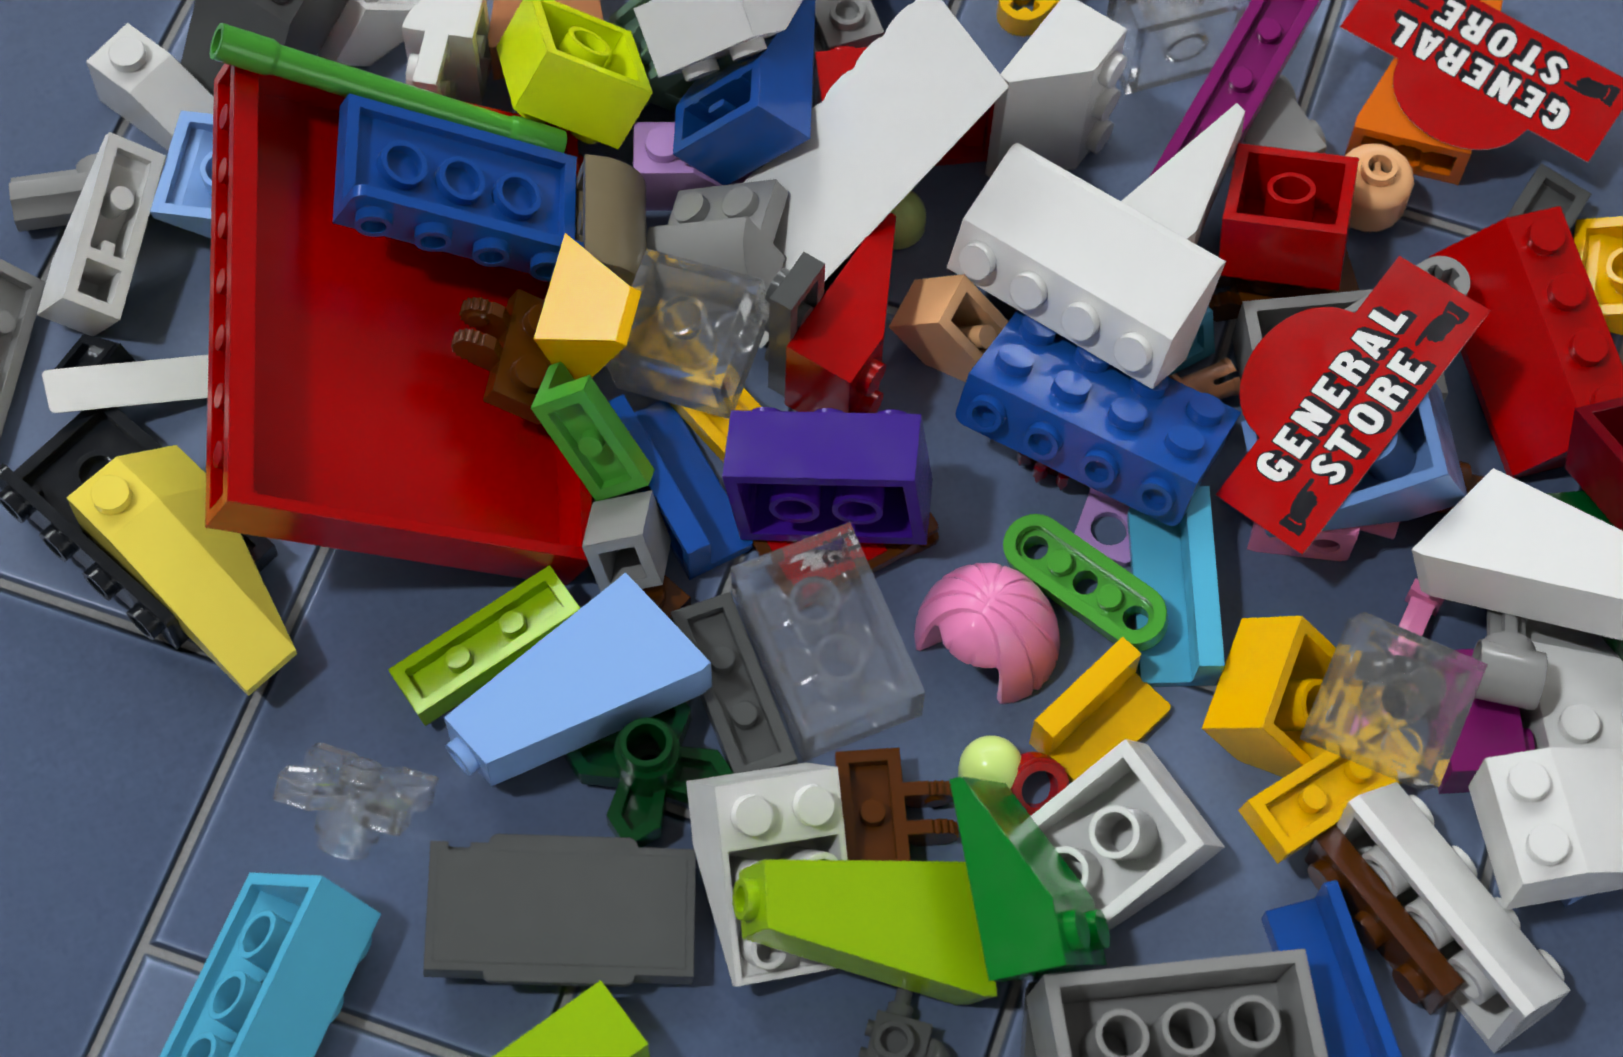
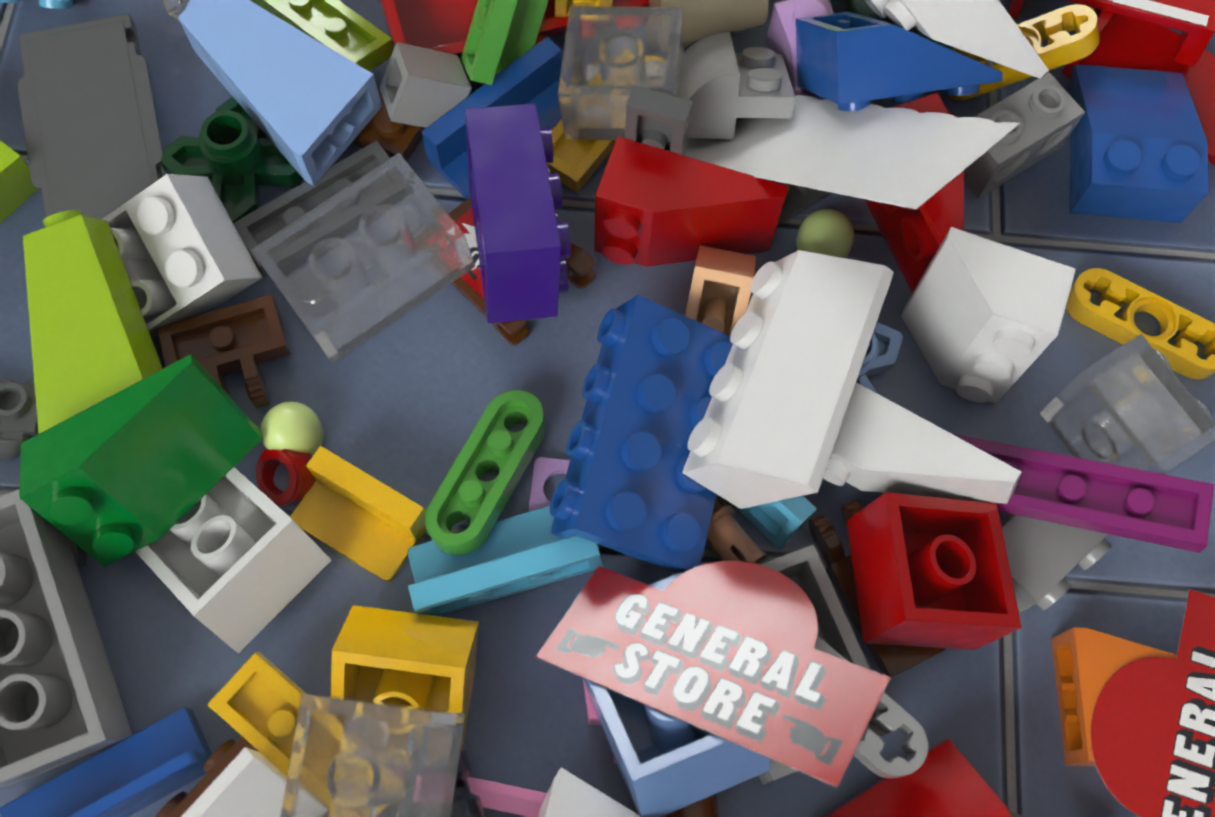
camera: 75 degrees right, 5 degrees up
(993, 621) = (423, 401): bright pink hair -> none
(1381, 187) = (1015, 667): light nougat head -> none

